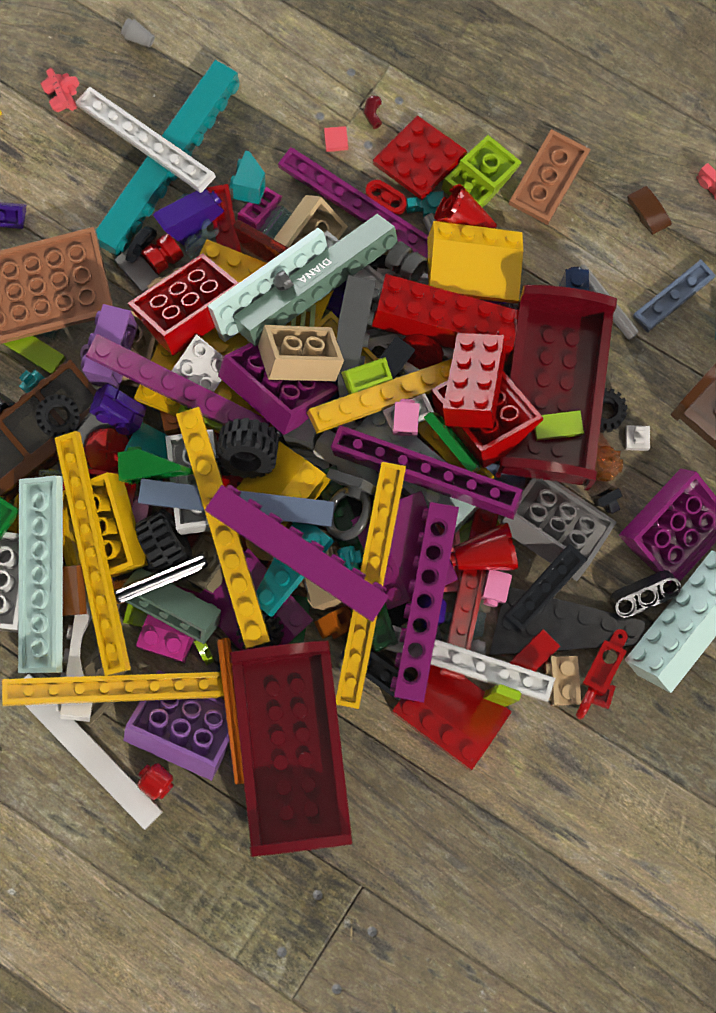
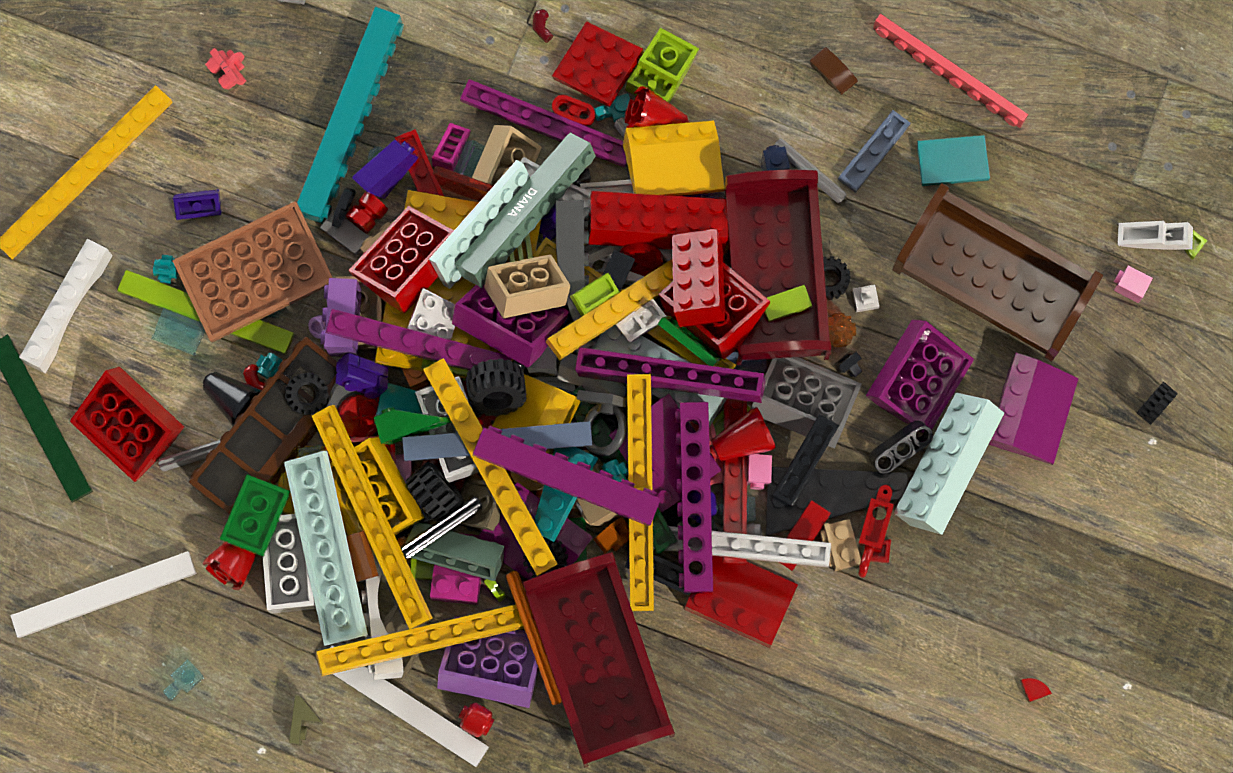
camera: 10 degrees left, 0 degrees up
(12, 389) = (251, 377): none -> red arm
(145, 140) = (324, 102): white tile -> none
(196, 242) = (398, 194): clear light blue plate -> none
(249, 180) = (436, 121): teal slope -> none
(282, 281) = (494, 220): dark grey hinge -> none
(336, 139) = (511, 61): coral tile -> none
(403, 261) = (604, 172): dark grey wheel -> none
(406, 418) = (640, 327): bright pink brick -> none
(502, 695) = (785, 570): lime tile -> none
(549, 177) = (729, 57): nougat plate -> none

